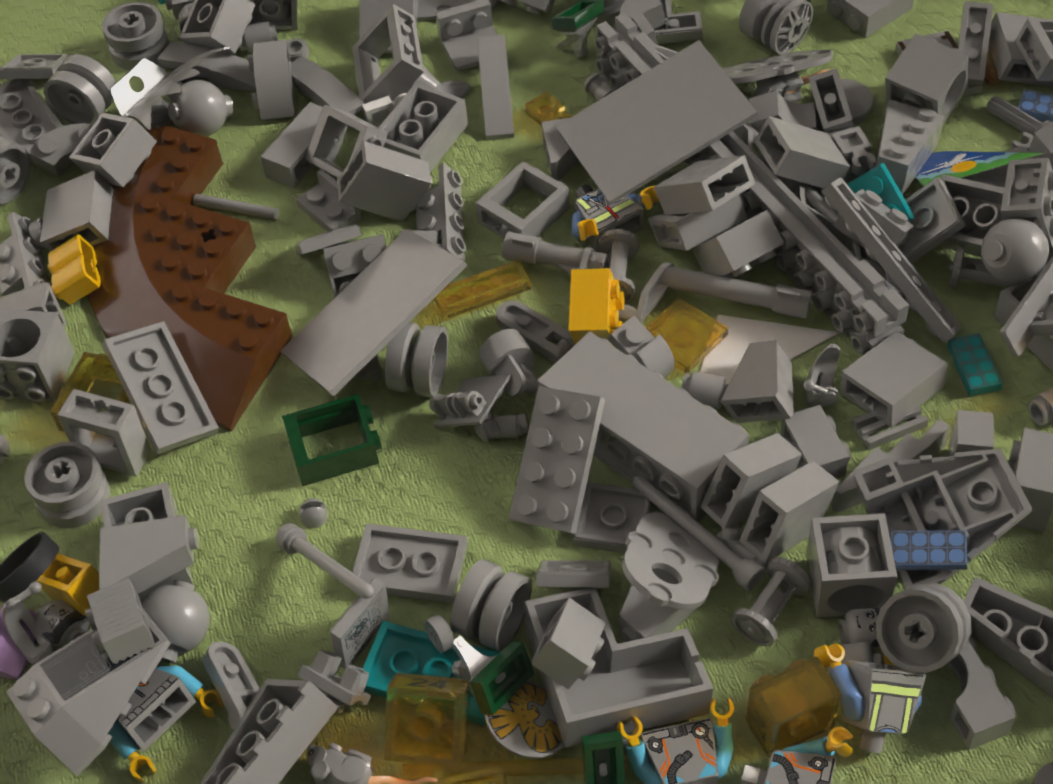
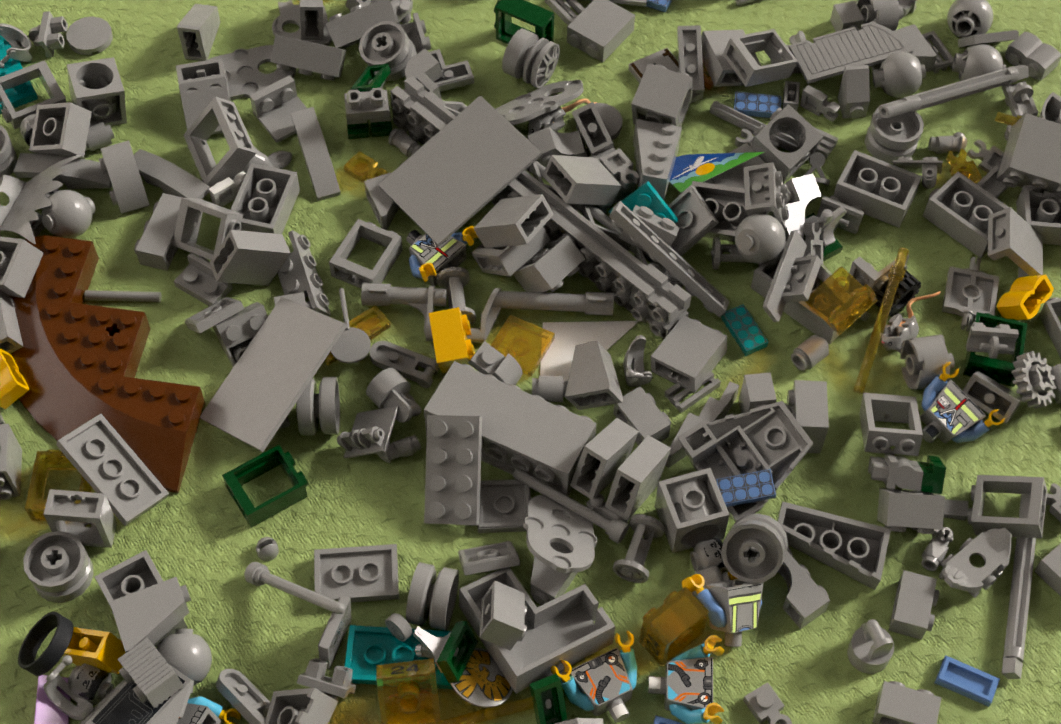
camera: 20 degrees left, 5 degrees up
(297, 49) = (135, 141): light grey tile -> none
(476, 297) = (353, 343): none -> light grey piece
(564, 44) = (364, 107): none -> light grey hips

